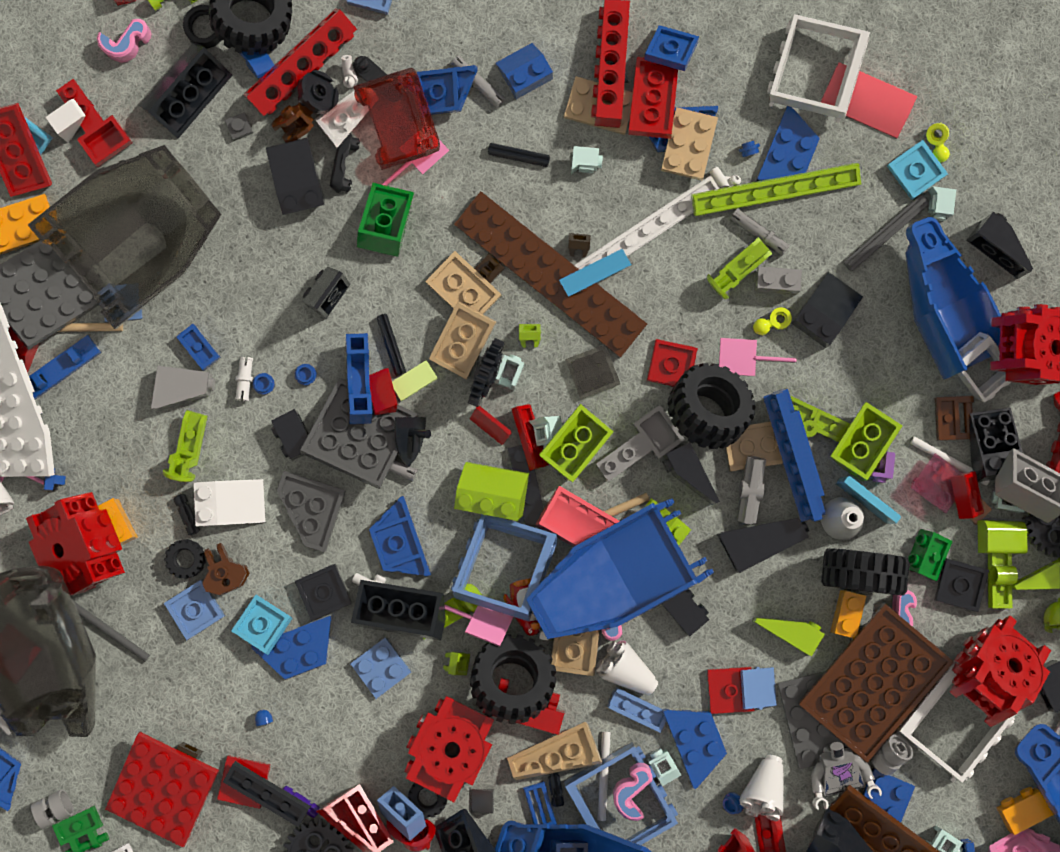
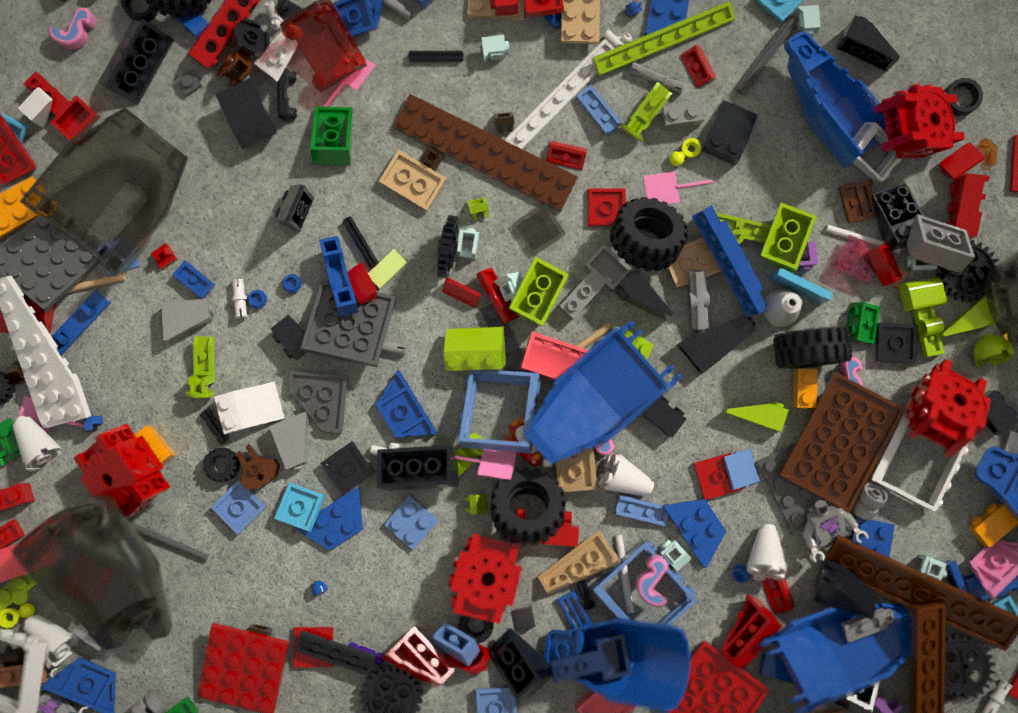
camera: 10 degrees left, 0 degrees up
(170, 313) = (164, 256): none -> red tile
(269, 549) = (292, 440): none -> light grey slope
(409, 437) = (393, 317): black shield -> none
(462, 340) = (421, 224): tan plate -> none
(595, 272) = (523, 142): dark azure sticker -> none
(640, 296) = (566, 155): none -> red slope
(686, 254) = (598, 110): none -> medium blue hinge
(808, 228) = (698, 66): none -> red slope

